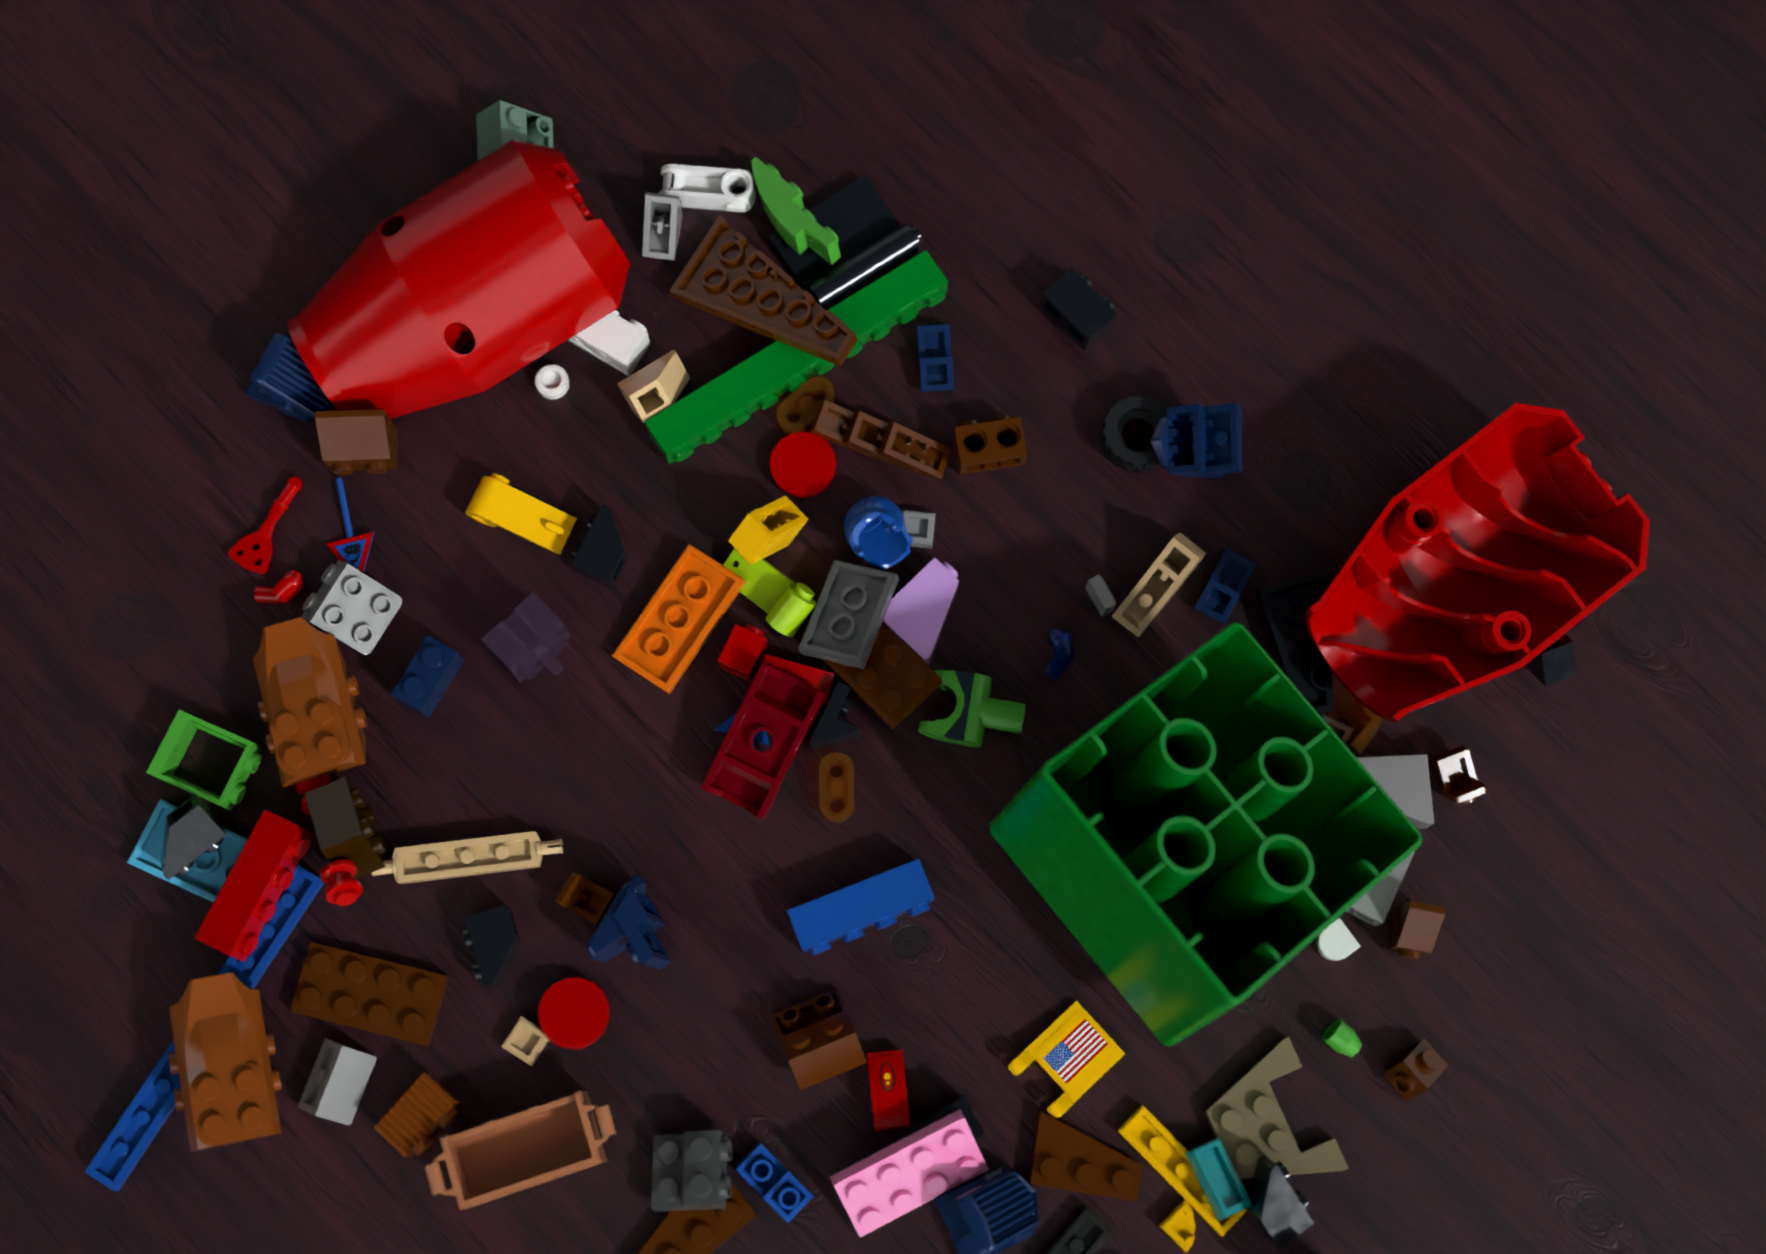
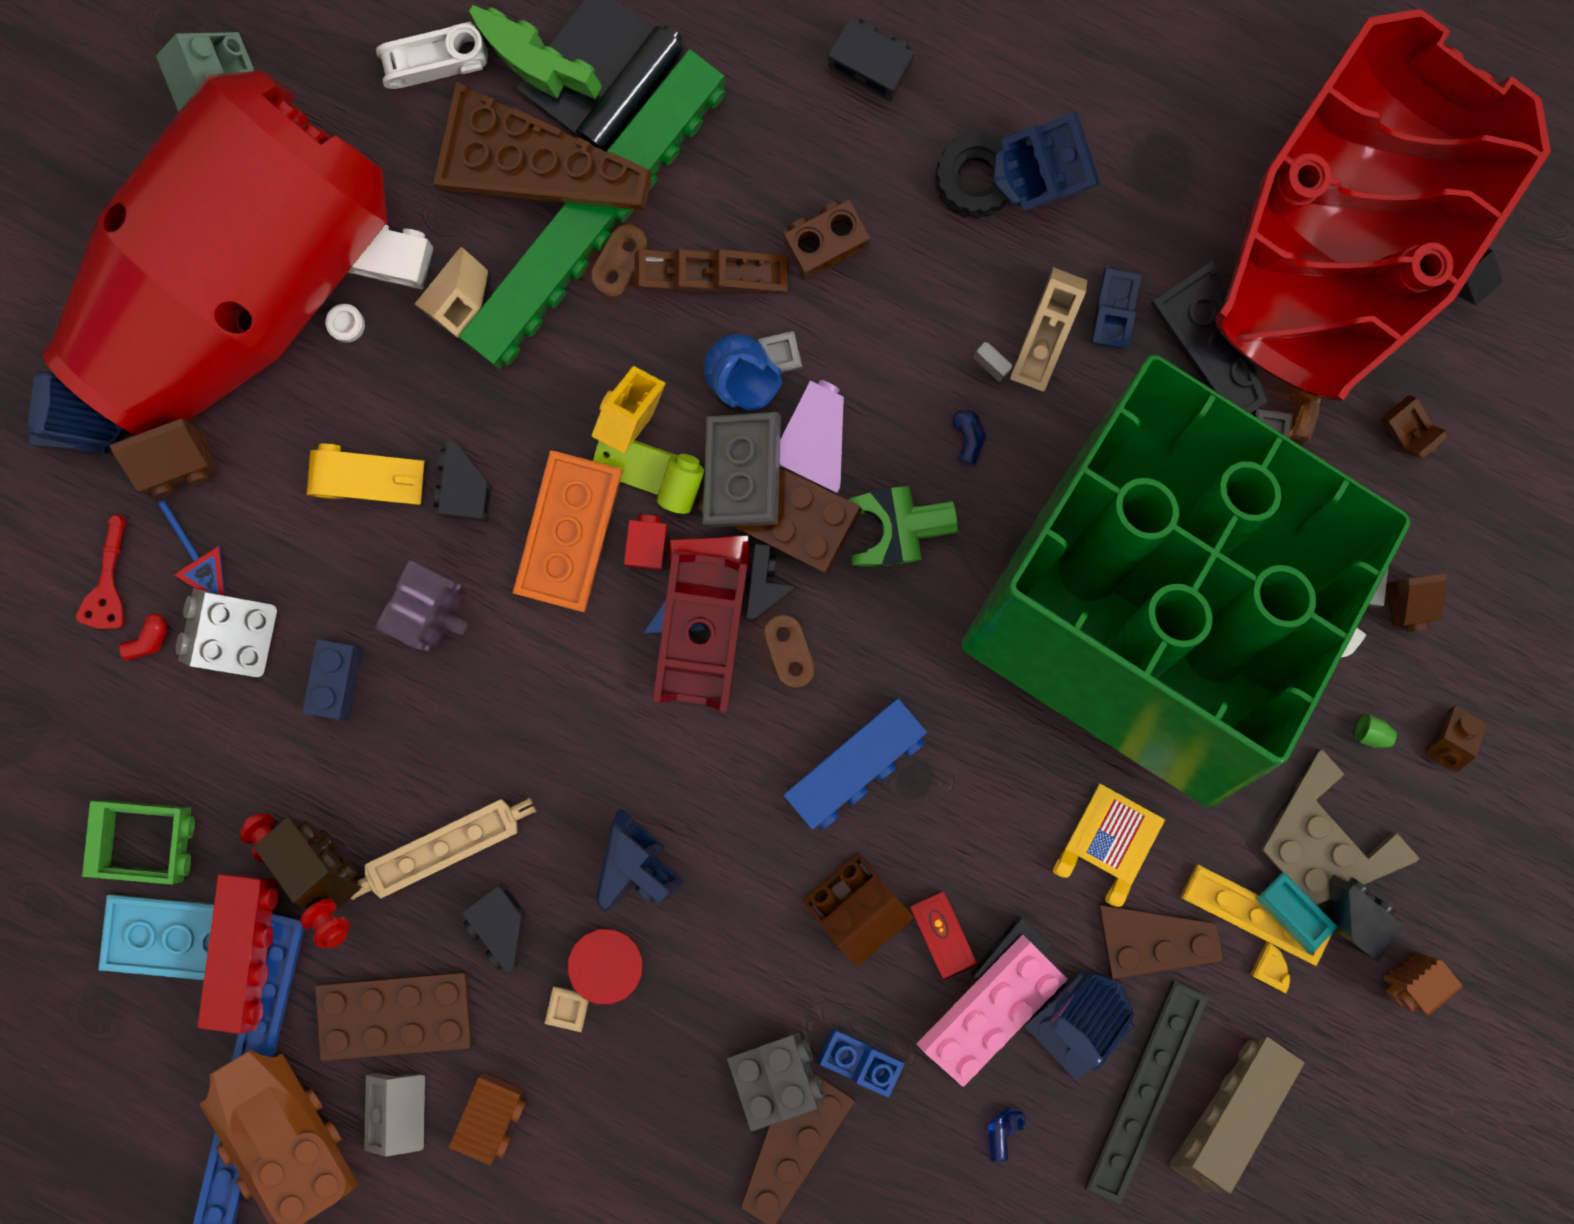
camera: 20 degrees left, 10 degrees up
(188, 834) = (150, 925): black slope -> none
(308, 702) = (221, 749): dark orange slope -> none
(522, 1150) = (604, 1119): nougat container -> none
(585, 898) = (577, 850): reddish brown bracket -> none
(661, 226) = (399, 115): light grey slope -> none
(803, 464) = (638, 325): red tile -> none
(935, 358) = (737, 163): dark blue slope -> none
(1407, 784) = (1362, 456): light grey slope -> none

